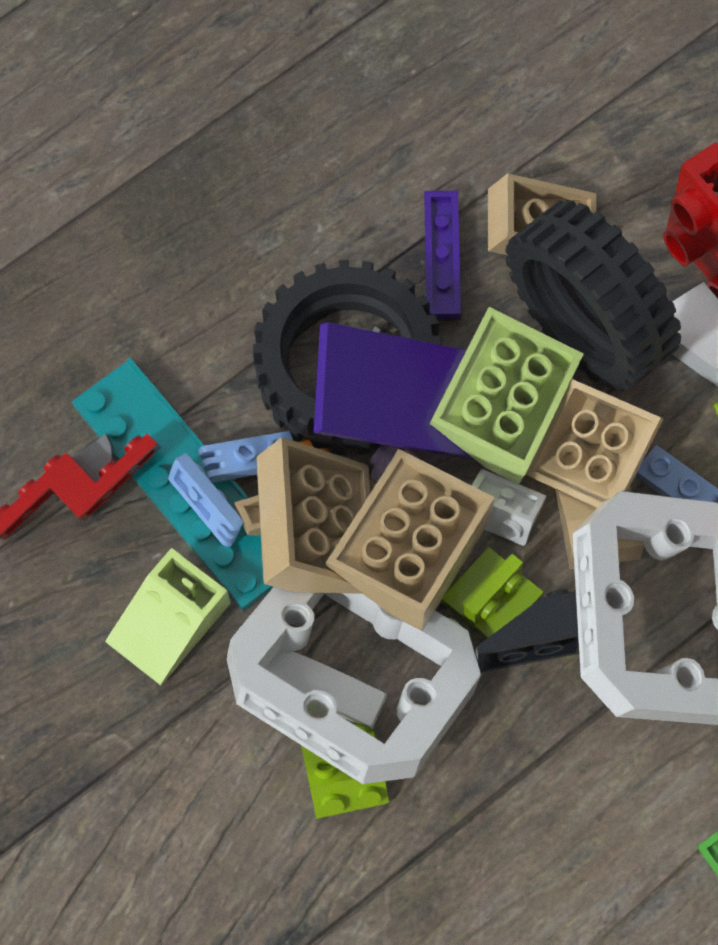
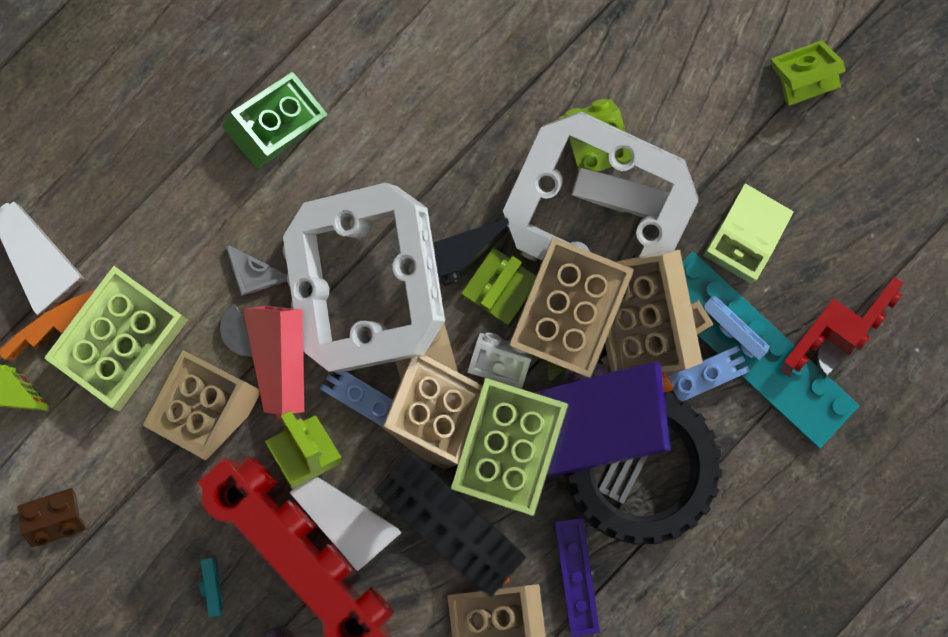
camera: 165 degrees right, 15 degrees up
(51, 818) = (808, 71): none -> lime bracket

